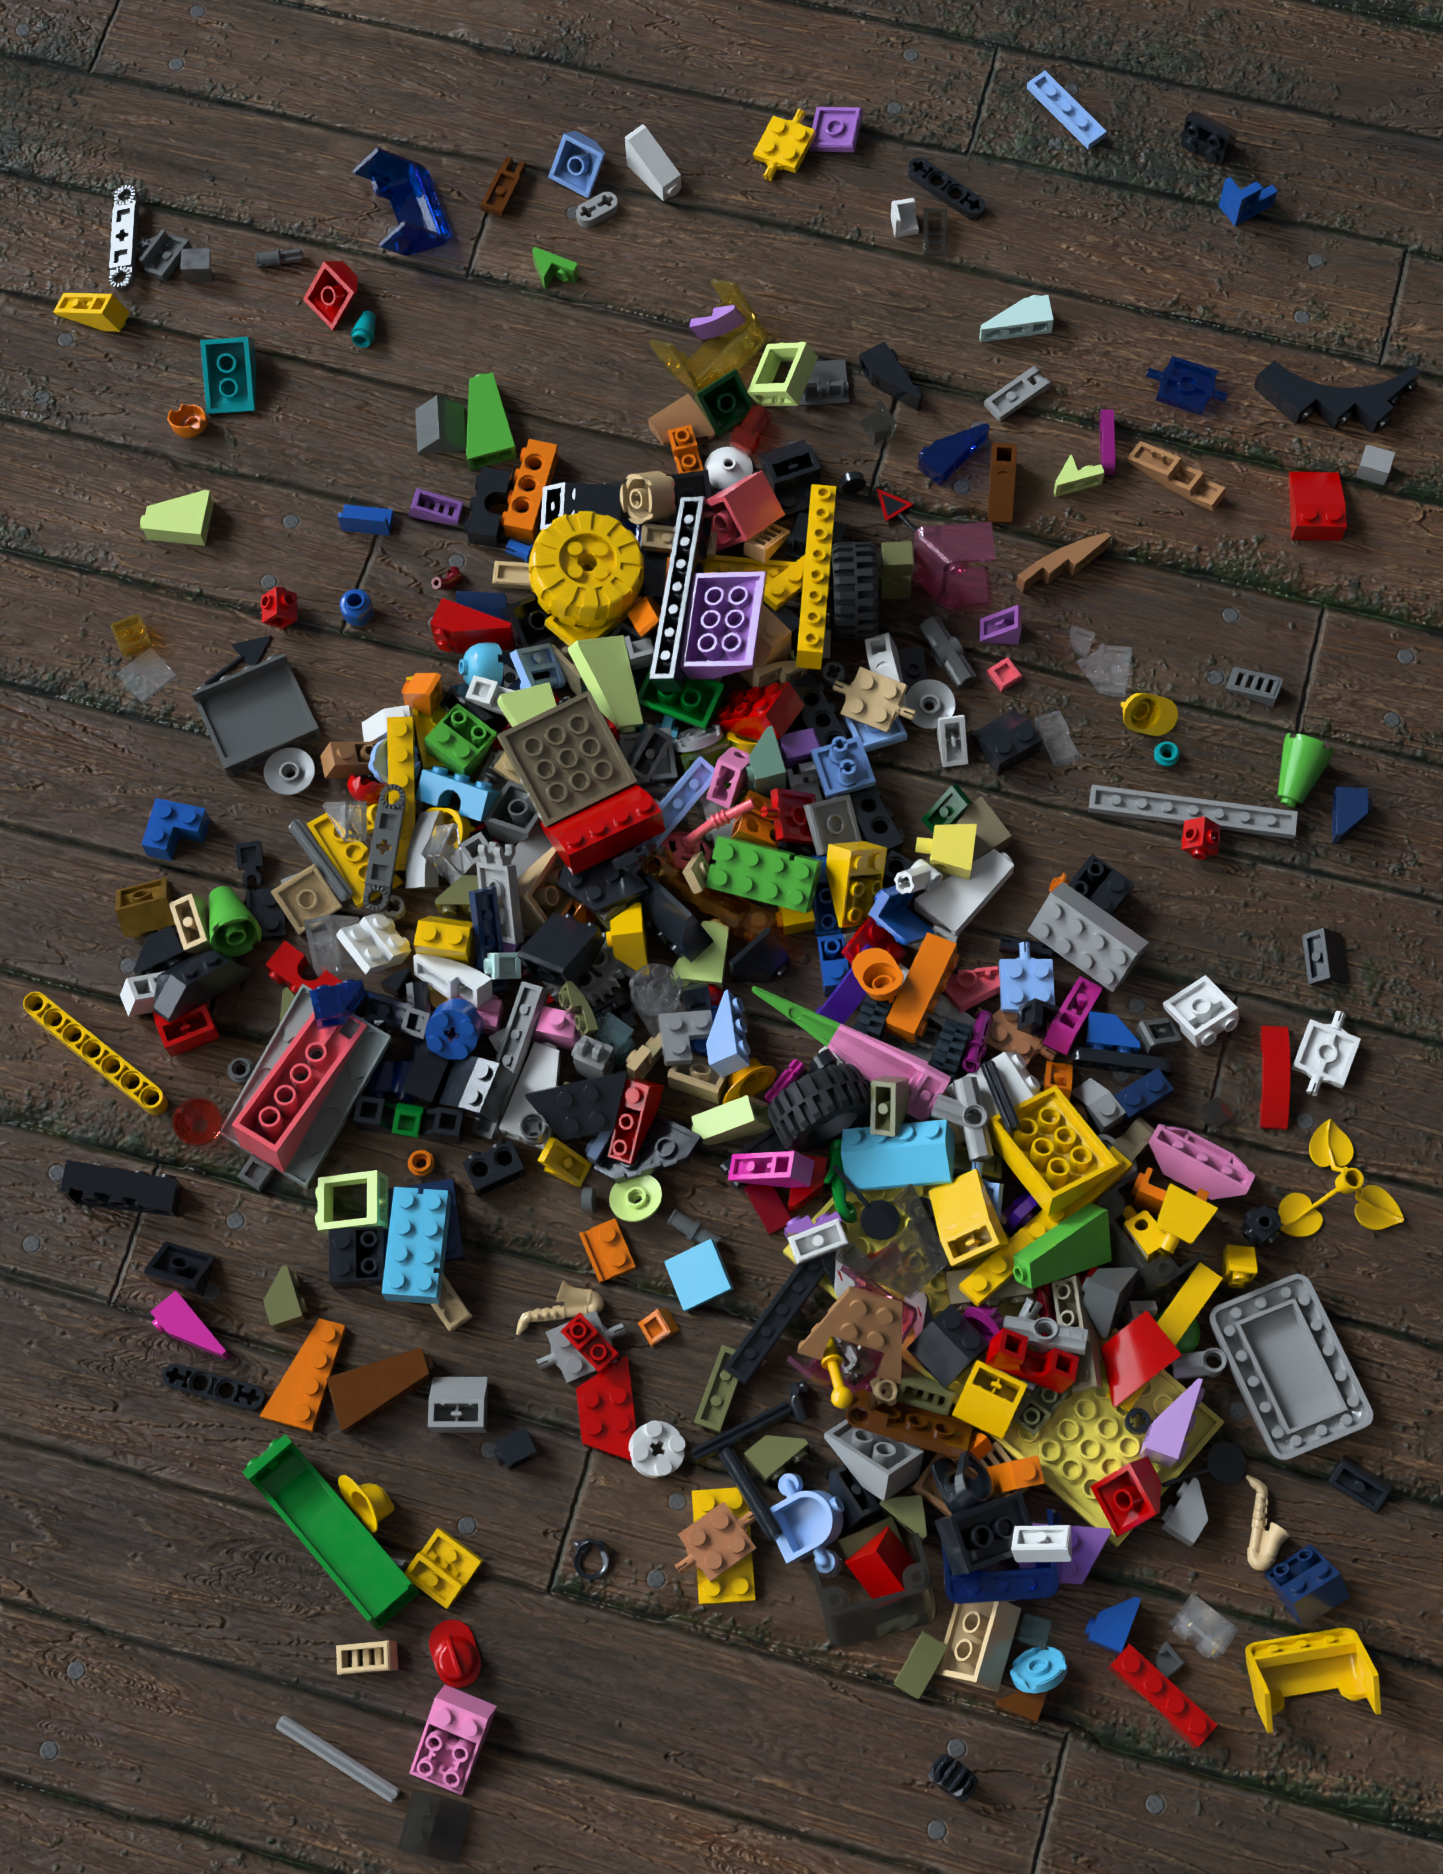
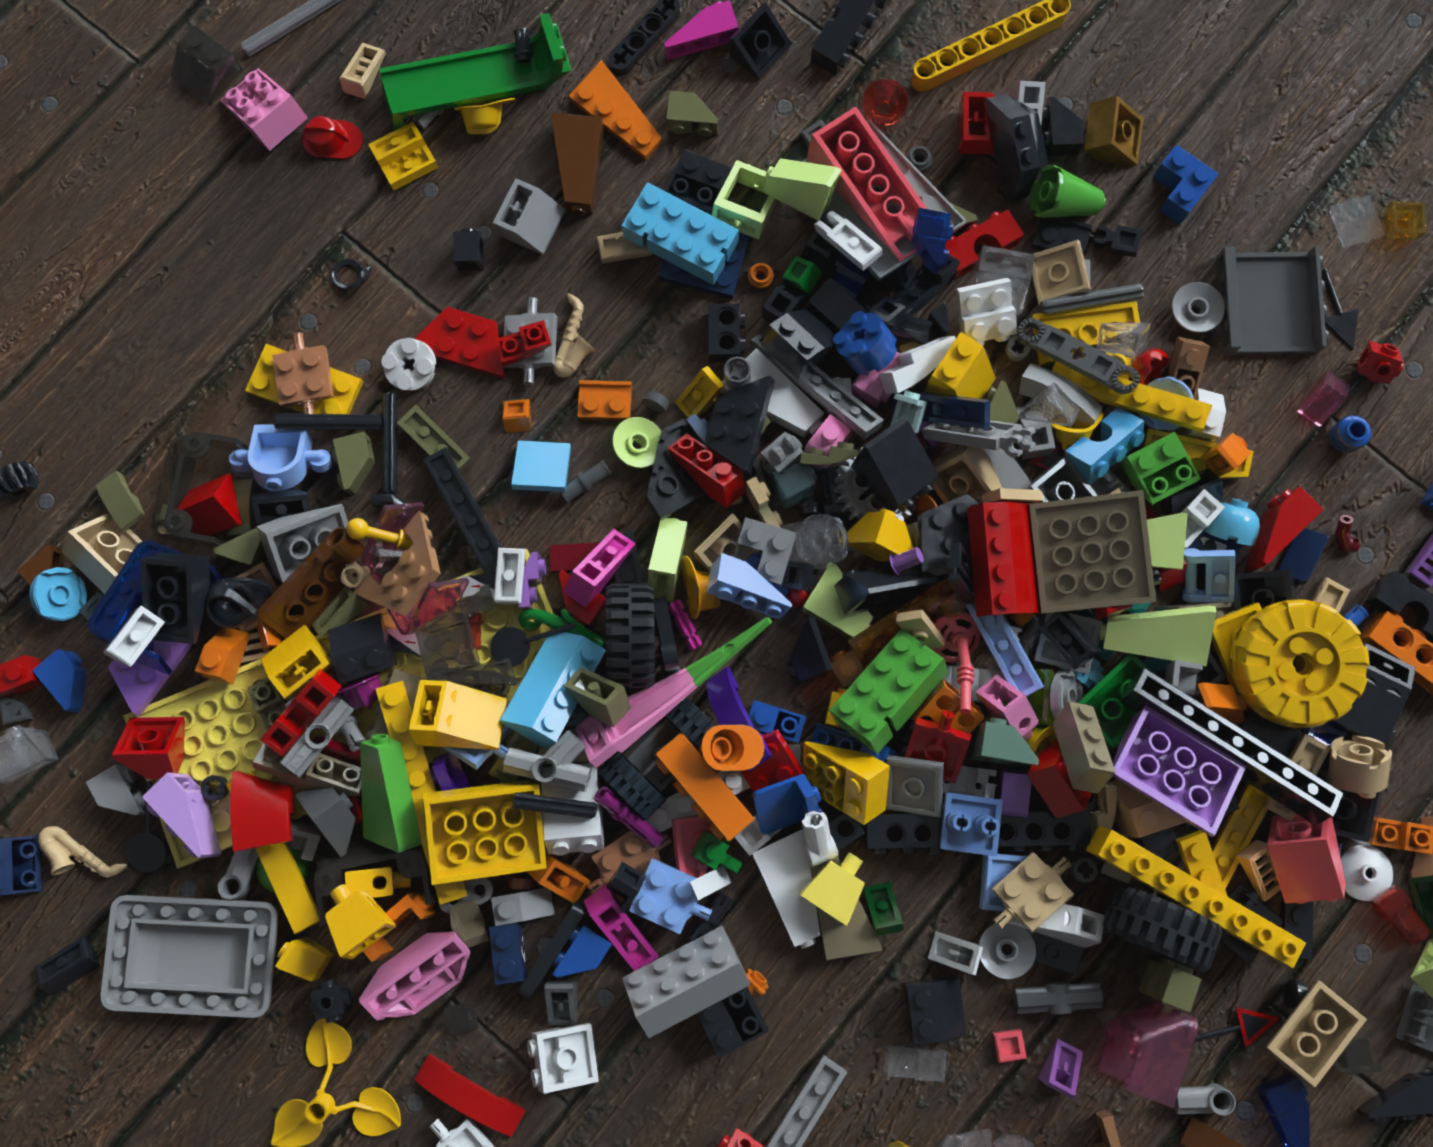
camera: 115 degrees right, 10 degrees up
(192, 923) = (1080, 160): tan brick -> none
(280, 1496) = (523, 47): none -> black pin
(325, 1146) = (802, 185): none -> yellowish green slope
(328, 639) = (1324, 398): none -> clear pink slope
(364, 1080) = (849, 240): none -> white hinge
(546, 842) = (1013, 495): none -> tan tile
(643, 904) = (906, 559): none -> medium lavender piece
(738, 699) = (1083, 747): none -> dark tan brick
(790, 466) = (1340, 936): black slope -> none
(877, 455) = (1315, 1034): none -> tan slope
(969, 515) = (1200, 1100): none -> light grey piece
(970, 967) = (713, 852): none -> green plate
(996, 954) = (710, 882): none -> white sticker

